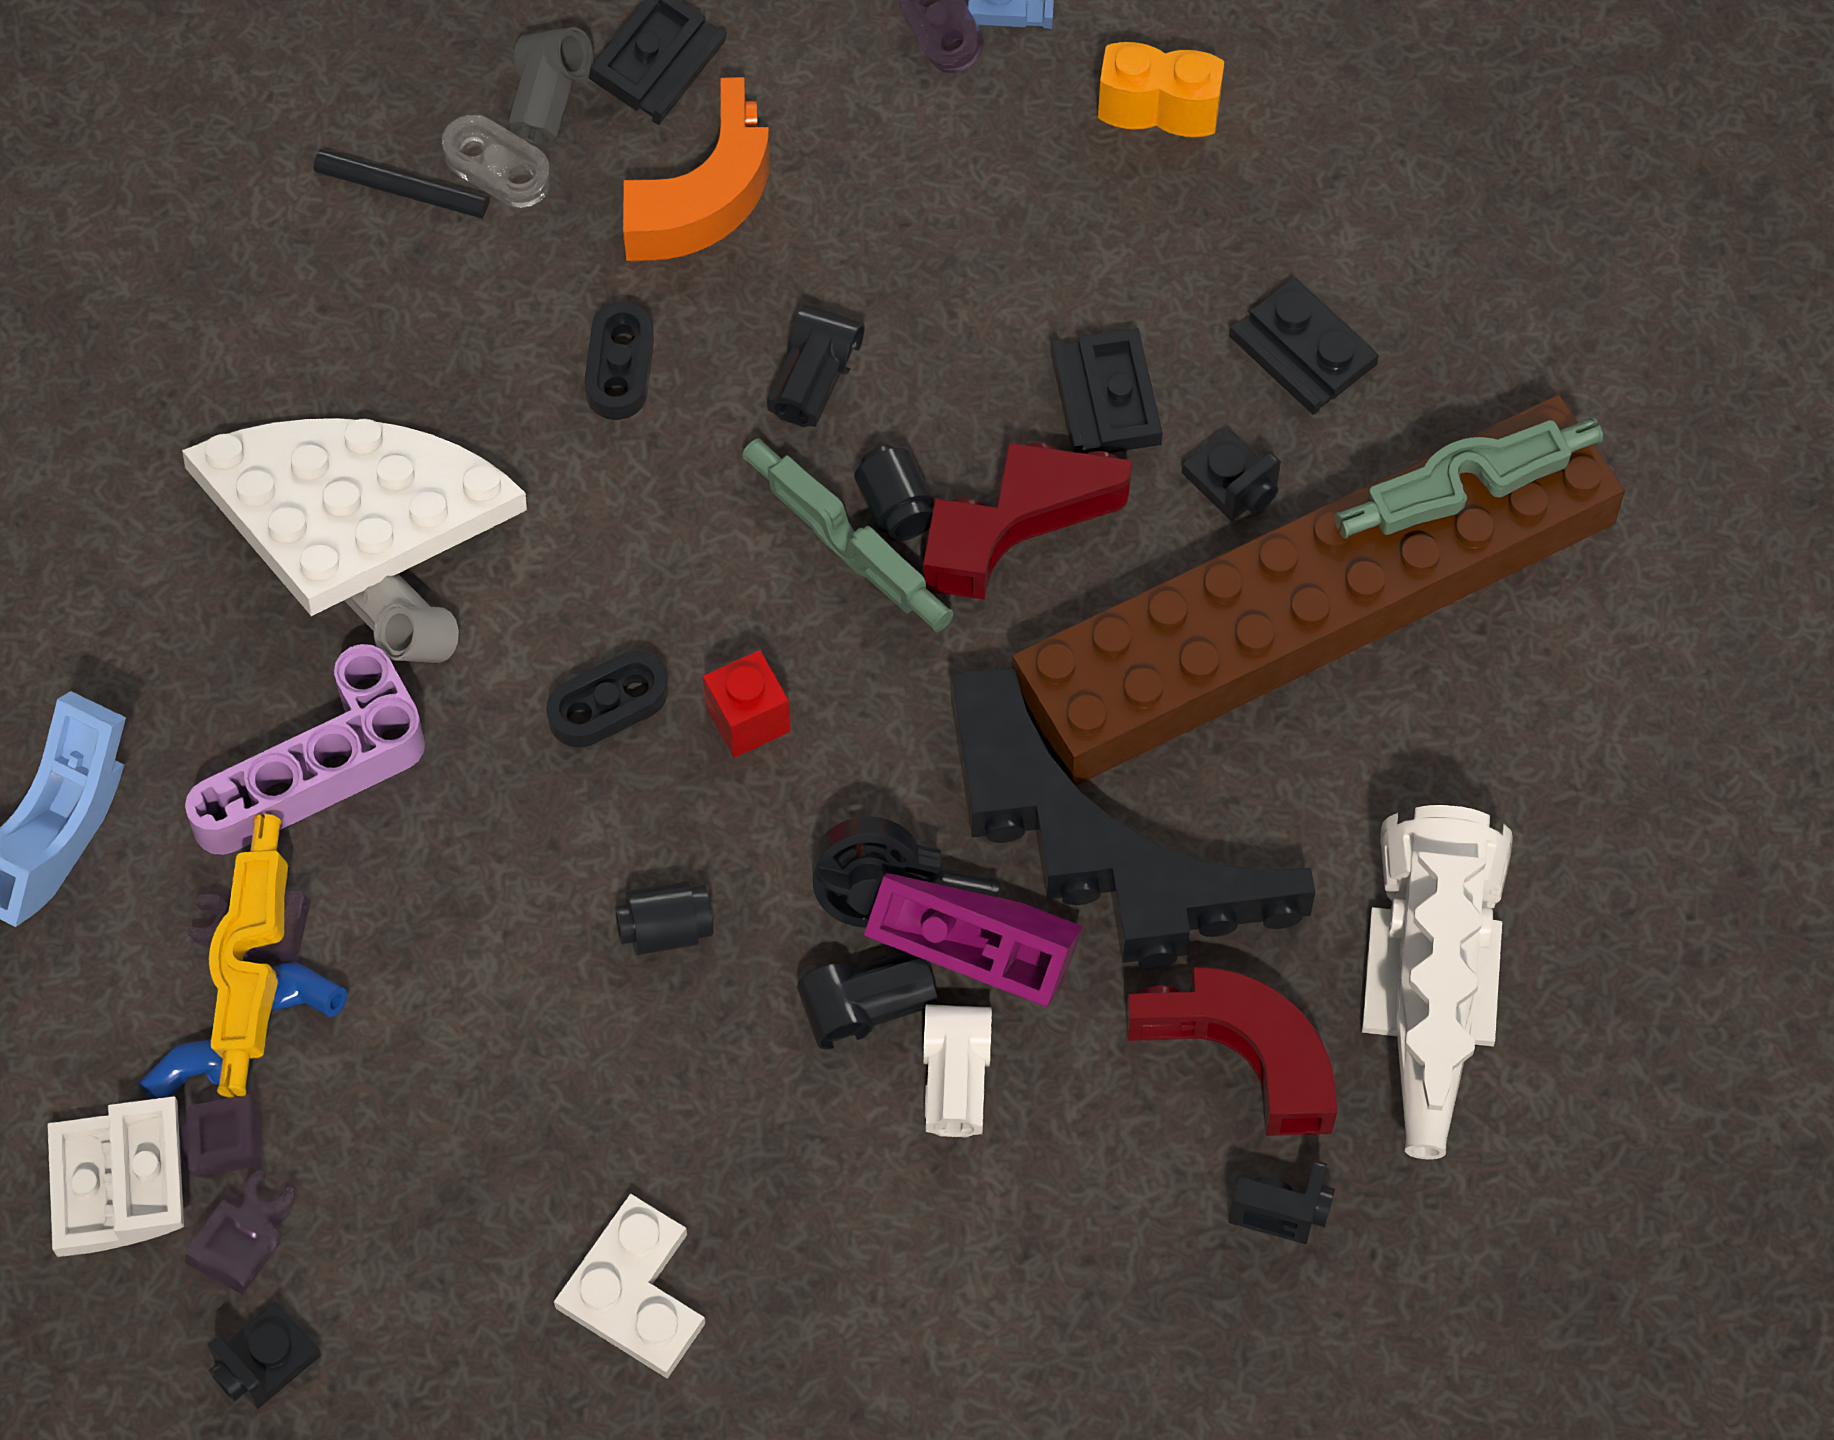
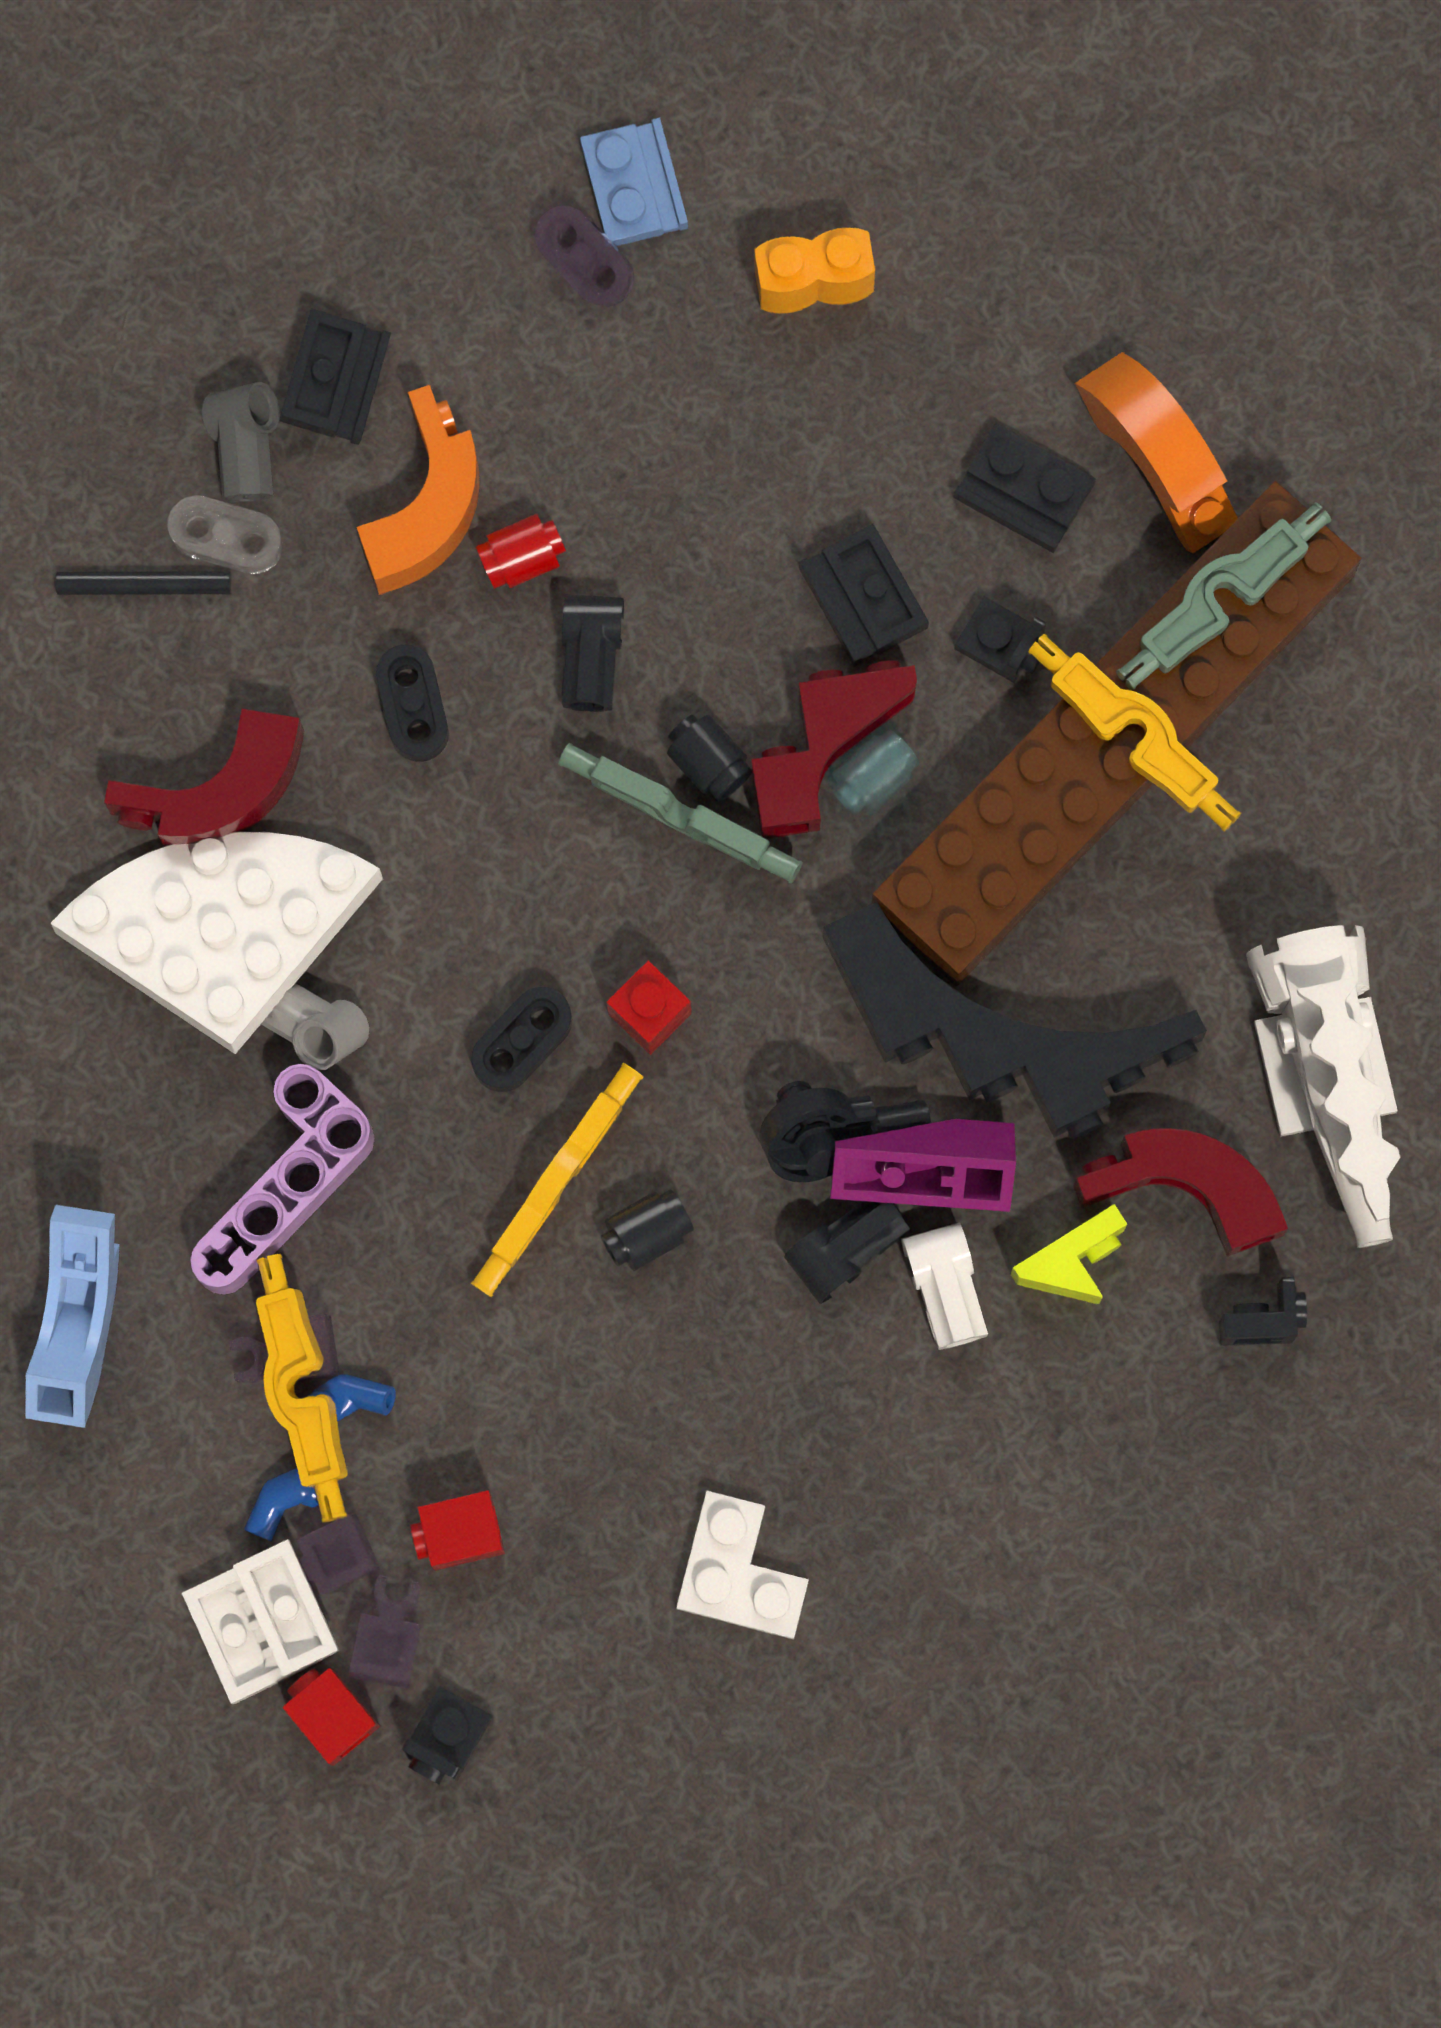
camera: 15 degrees left, 15 degrees up
(149, 1292) = (329, 1714): none -> red brick
(356, 1150) = (458, 1531): none -> red brick
(408, 392) = (231, 801): none -> dark red arch
(570, 852) = (555, 1178): none -> yellow piece
(779, 256) = (521, 551): none -> red brick
(1057, 556) = (874, 773): none -> clear light blue brick
(1081, 1079) = (1058, 1265): none -> neon yellow slope
(1352, 602) = (1111, 709): none -> yellow piece
(1451, 317) = (1165, 445): none -> orange arch

